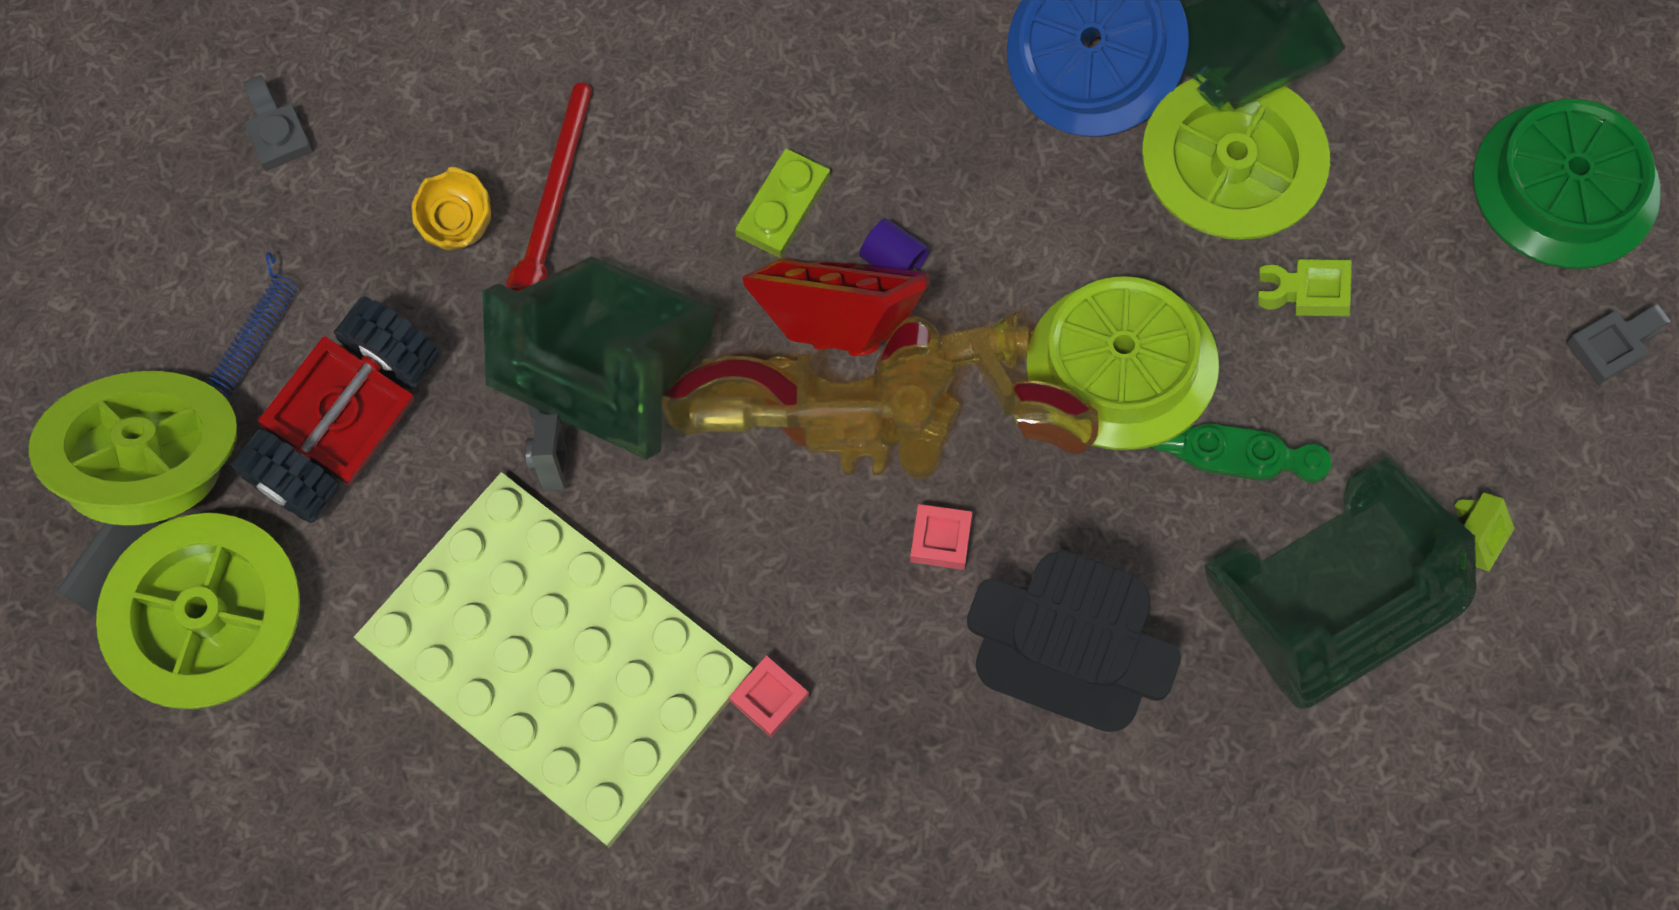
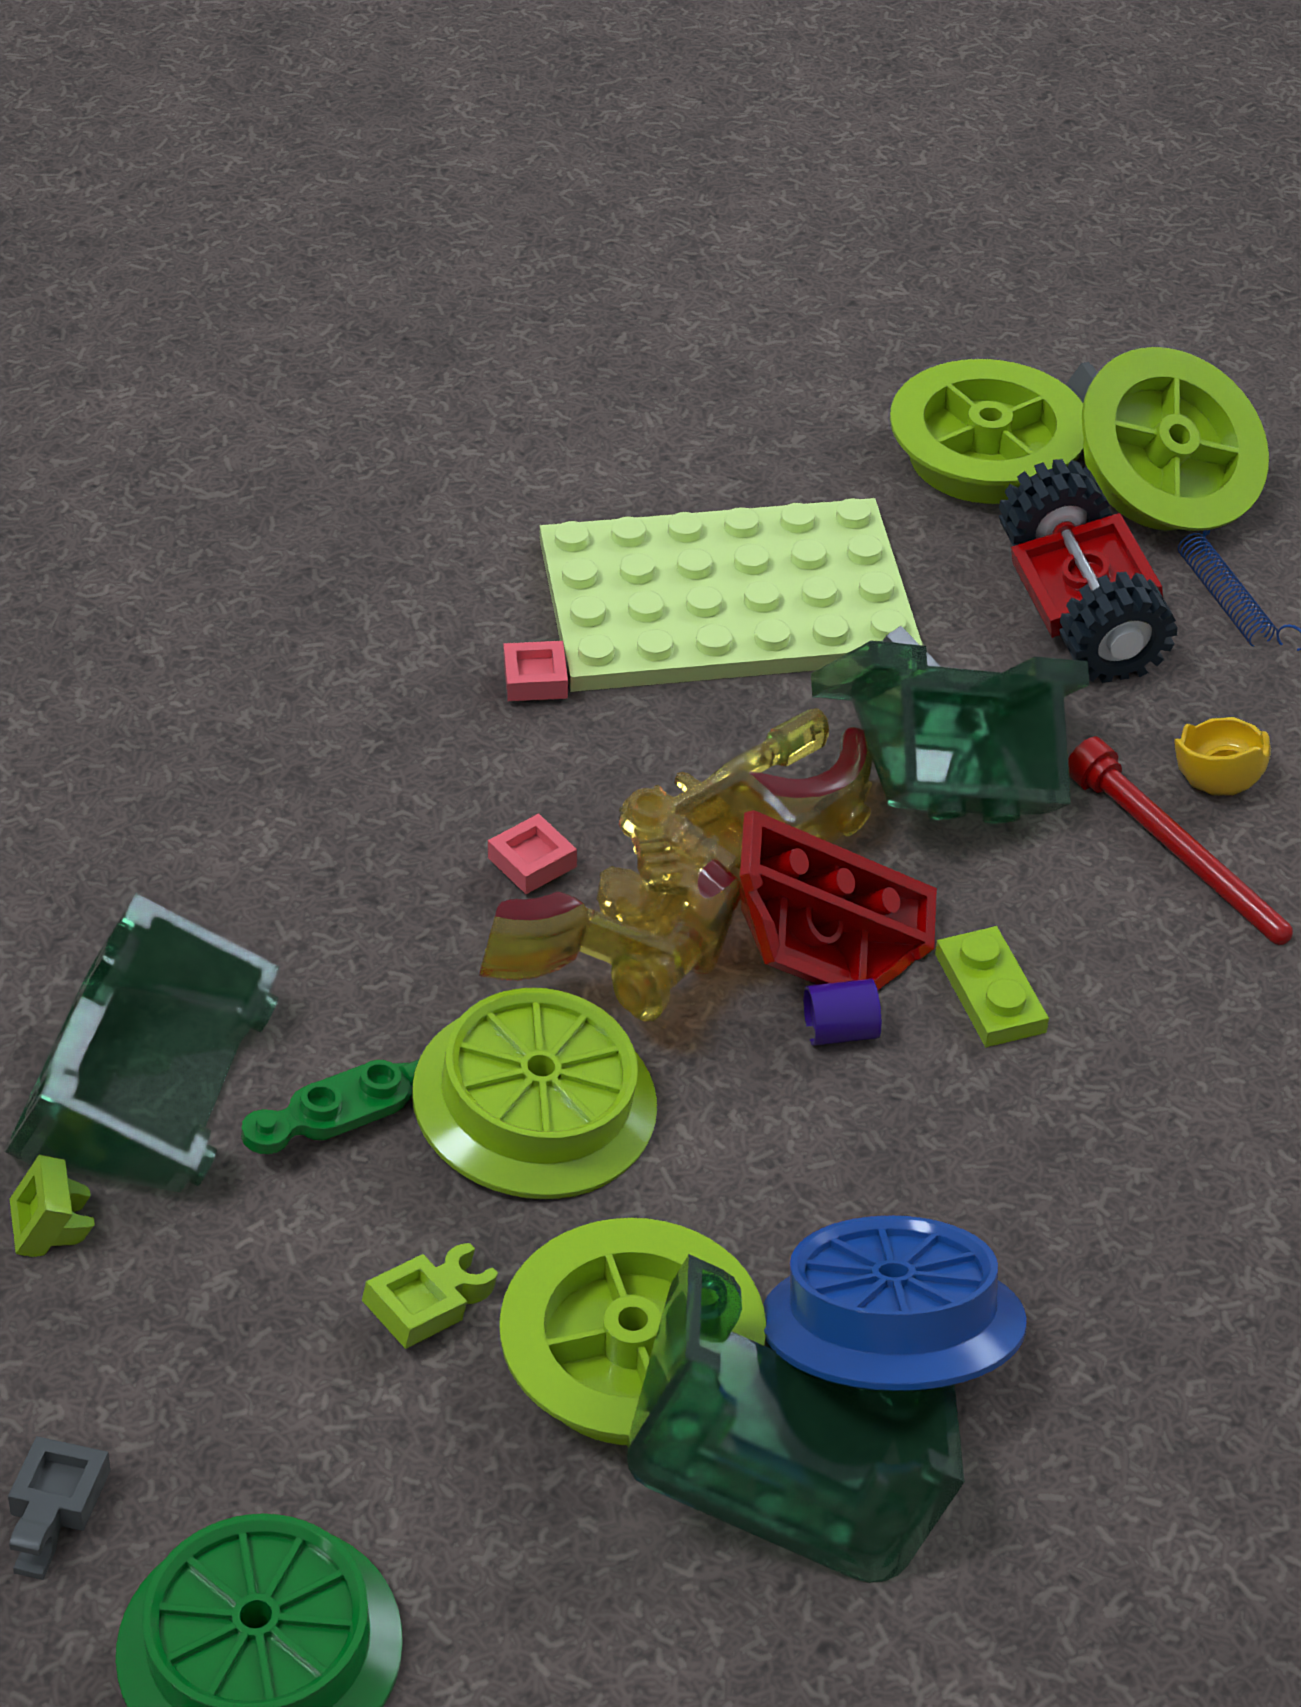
camera: 130 degrees right, 25 degrees down
(1072, 641) = (334, 813): black piece -> none

